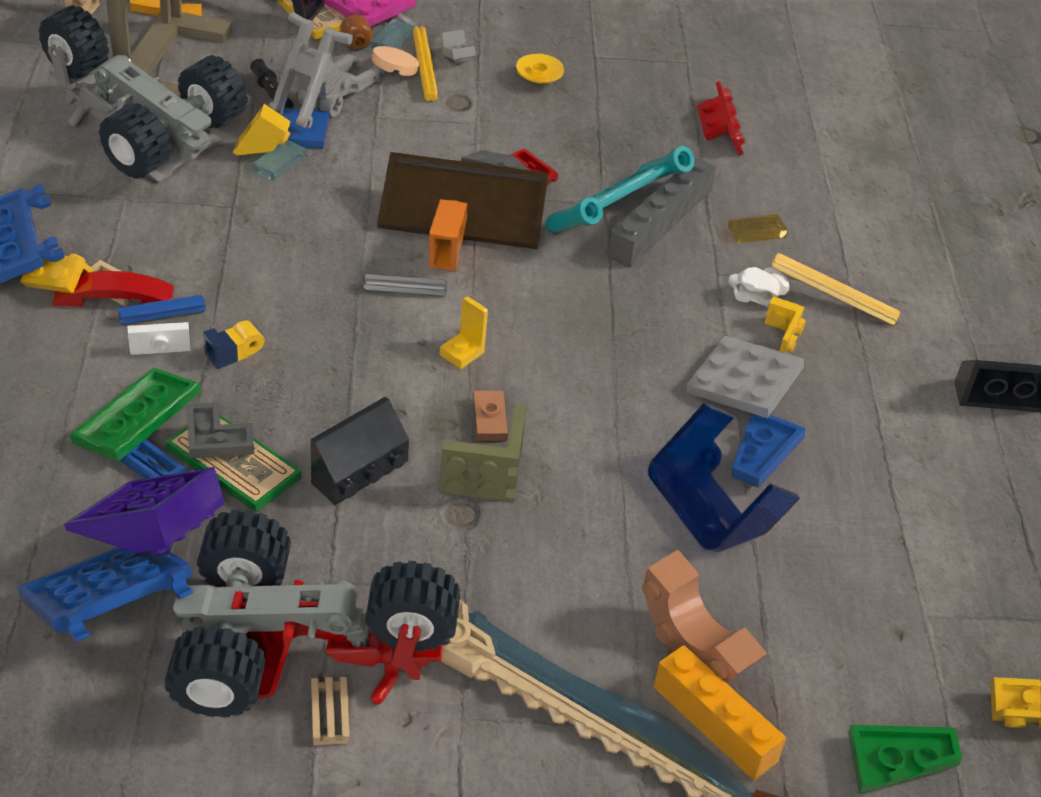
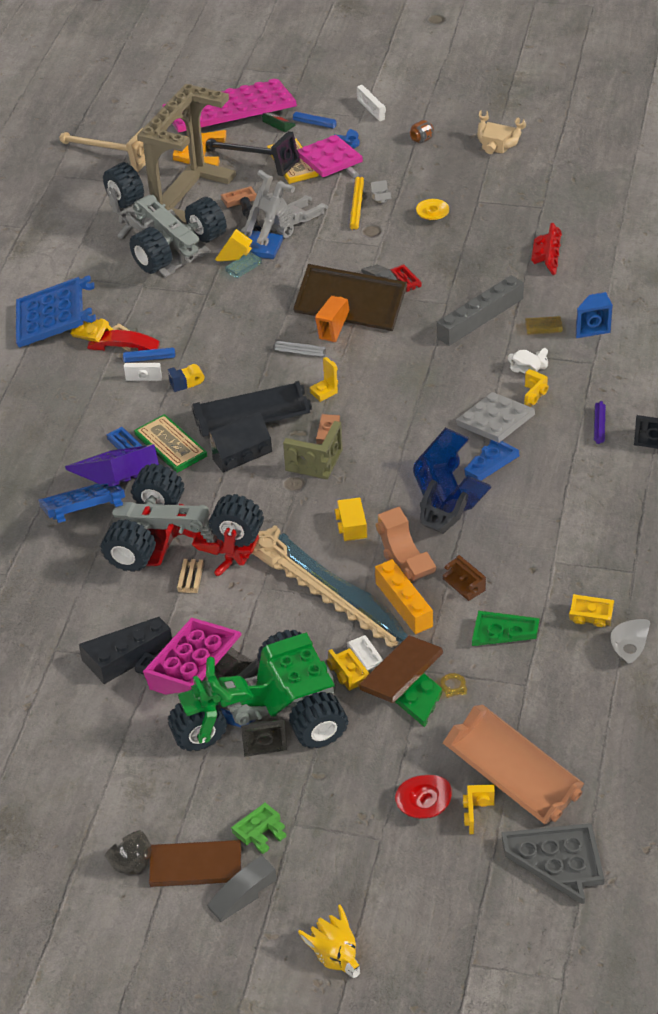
camera: 20 degrees right, 0 degrees up
(135, 414) = (120, 413): green tile -> none
(211, 439) = (158, 429): dark grey plate -> none
(243, 58) = (233, 198): none -> nougat plate
(326, 398) = (272, 403): none -> black cylinder
(360, 30) = (315, 180): dark orange head -> none
(392, 58) = (336, 200): light nougat tile -> none
(393, 34) = (340, 183): clear light blue tile -> none
(581, 573) = (351, 519): none -> yellow brick
(590, 211) = (423, 307): teal piece -> none
(737, 558) = (430, 514): none -> black piece
(803, 664) = (464, 578): none -> reddish brown hinge
(835, 289) = (577, 367): yellow axle -> none
(836, 210) = (594, 316): none -> blue slope
(899, 373) = (599, 422): none -> dark purple axle

